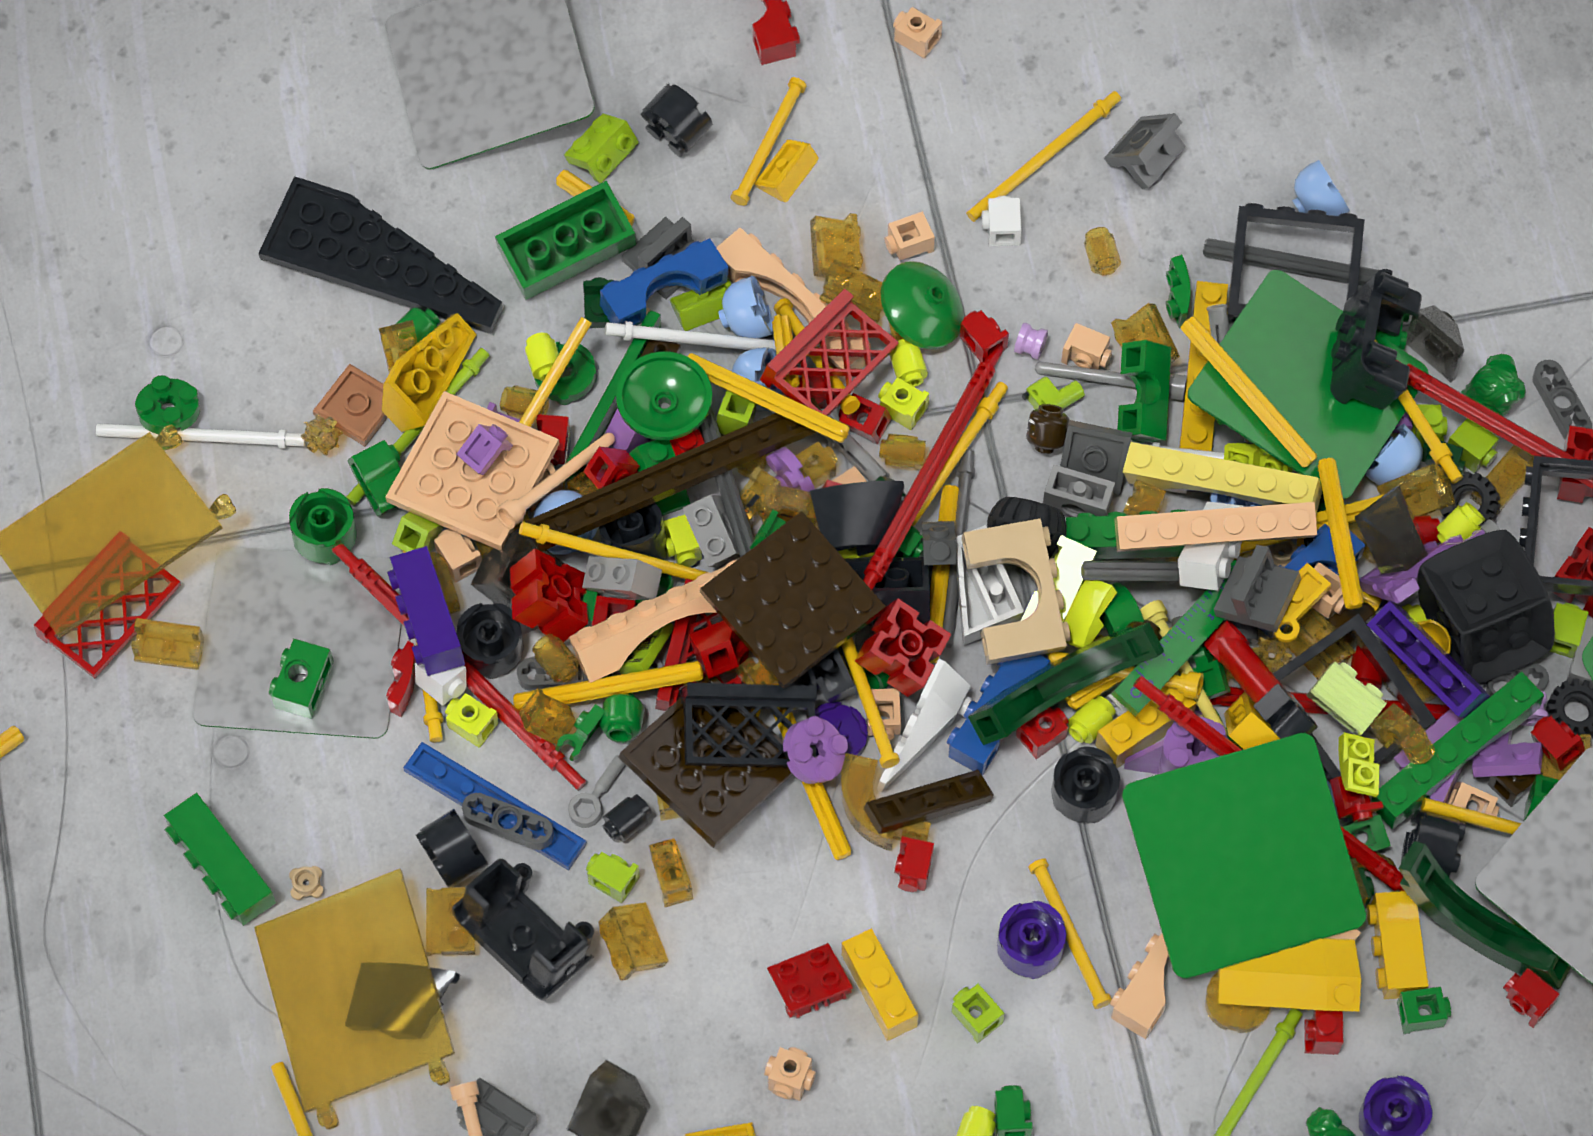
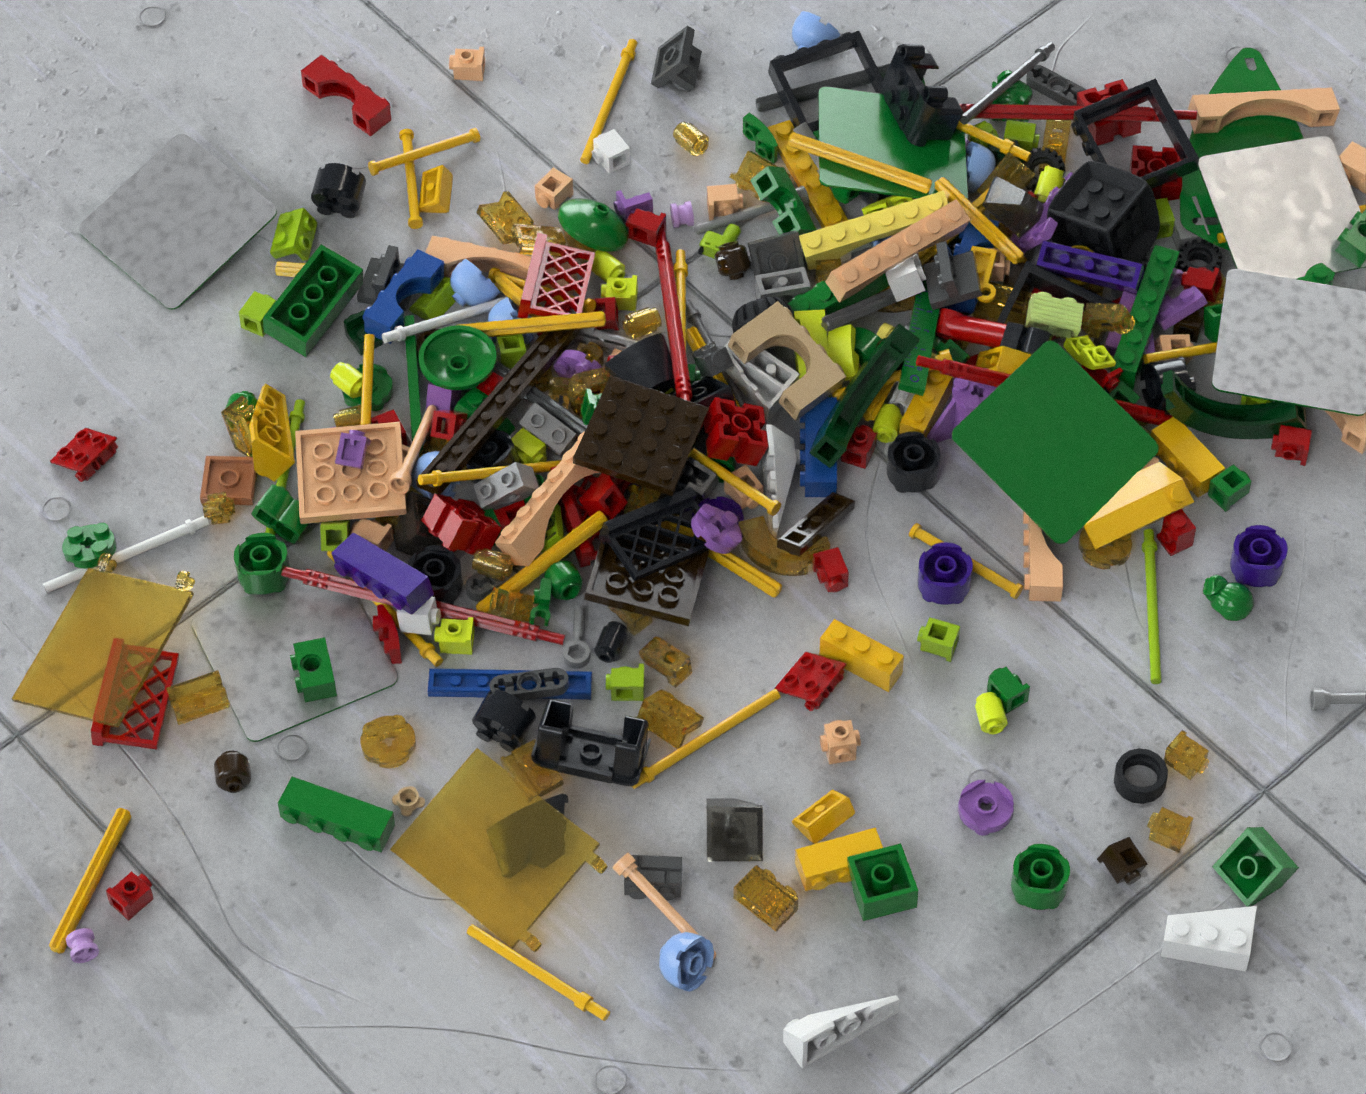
camera: 30 degrees left, 10 degrees down
(149, 748) = (232, 771): none -> dark brown head
(229, 291) = (86, 453): none -> red hinge
(320, 785) = (388, 727): none -> clear yellow plate
(349, 245) = (145, 382): black wing -> none
(503, 217) = (253, 311): none -> lime brick
(568, 993) = (649, 773): none -> yellow bar
(800, 117) = (472, 135): none -> yellow bar
(990, 303) = (626, 206): none -> medium lavender bracket
(1437, 340) = (960, 84): clear smoke slope -> none
(1563, 353) = (1041, 54): none -> flat silver bar

